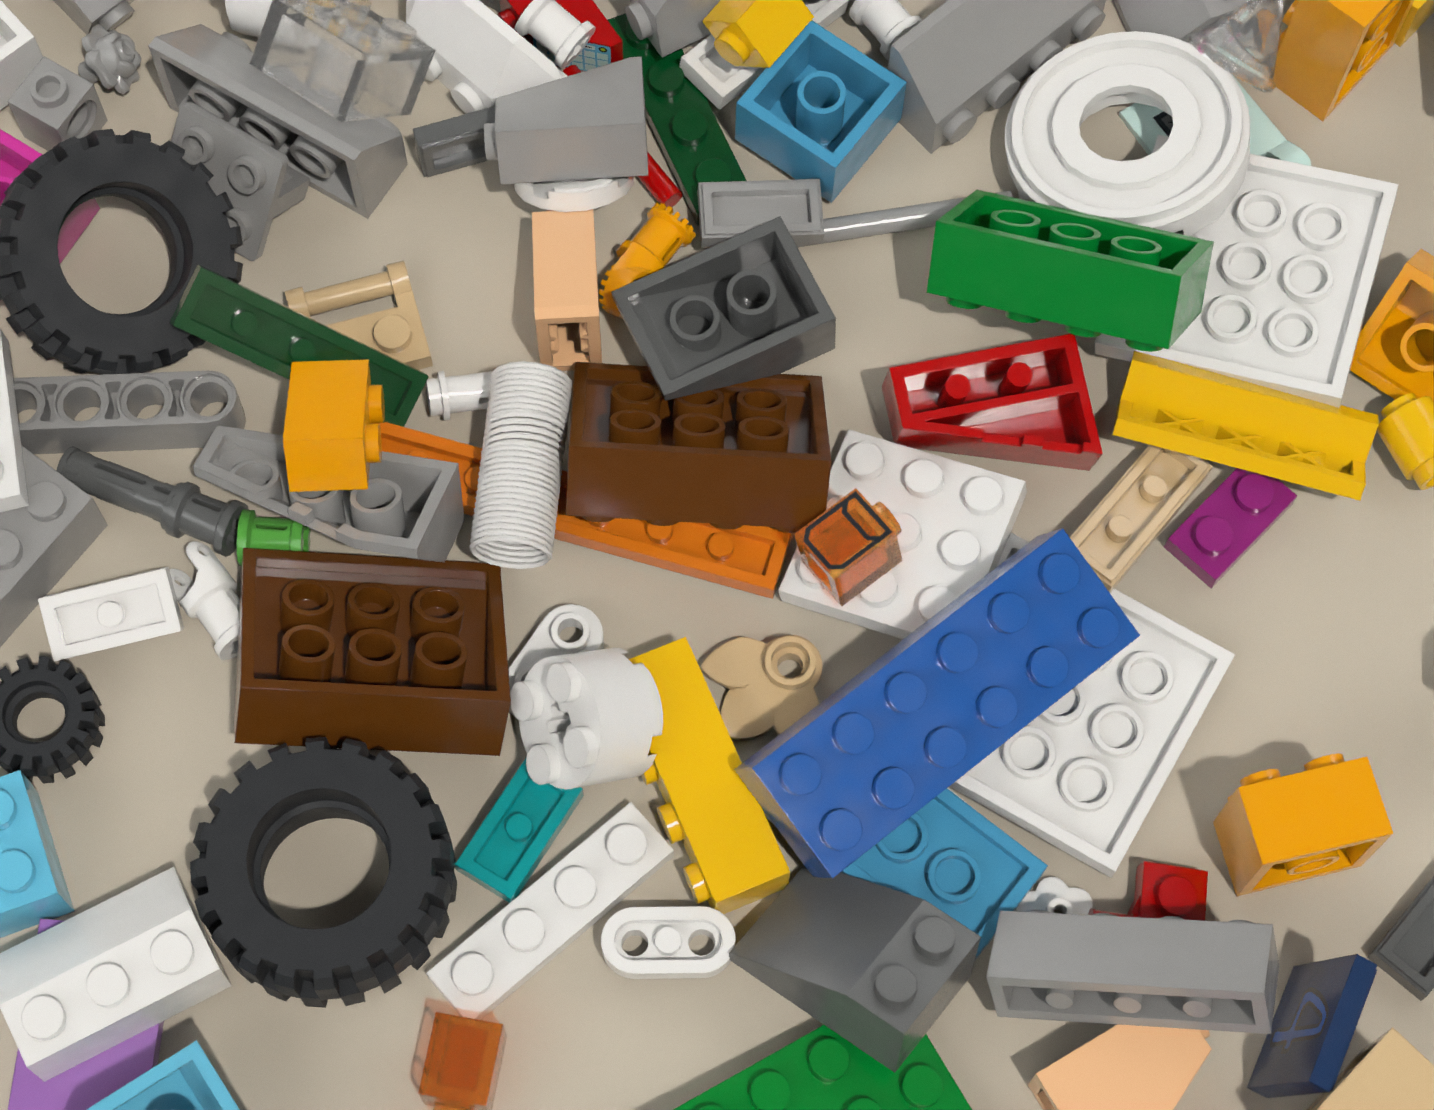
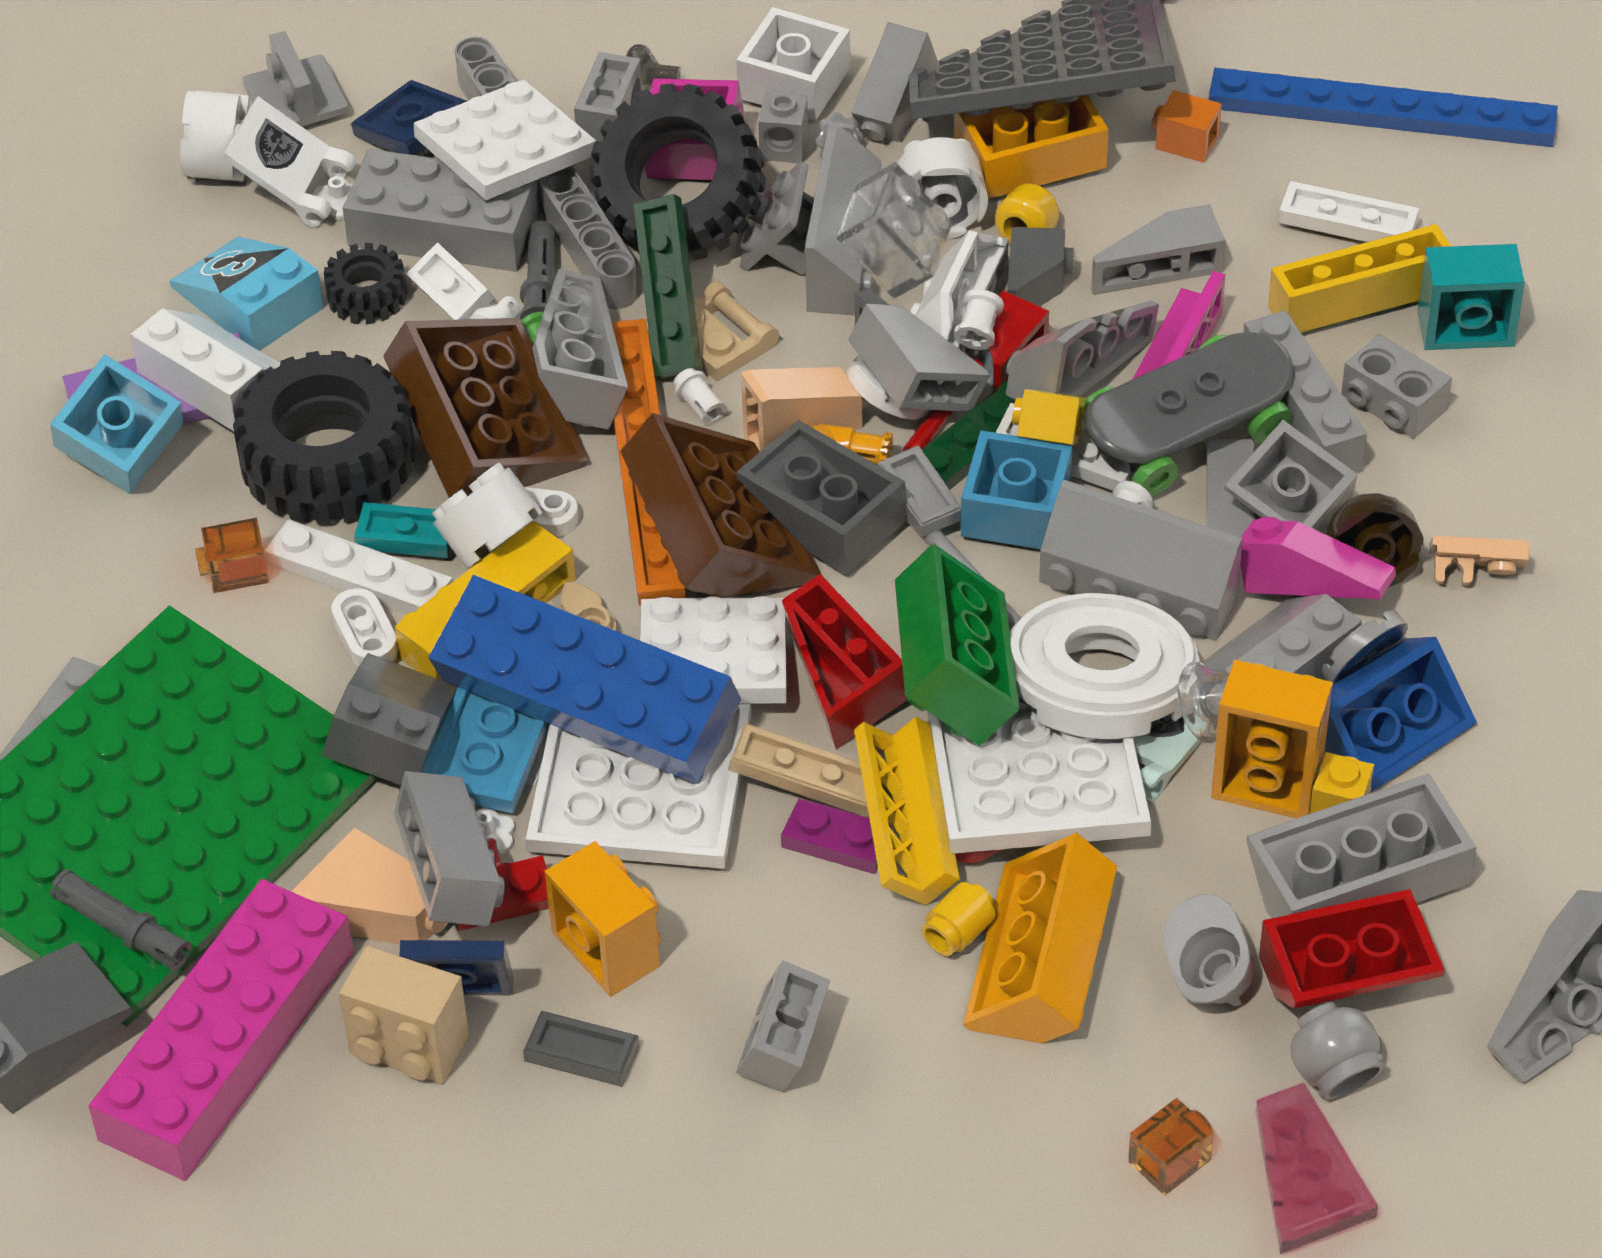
camera: 70 degrees right, 20 degrees down
(331, 425) = (615, 311): light orange brick -> none
(520, 471) = (609, 425): white piece -> none
(850, 545) = (676, 600): clear orange brick -> none

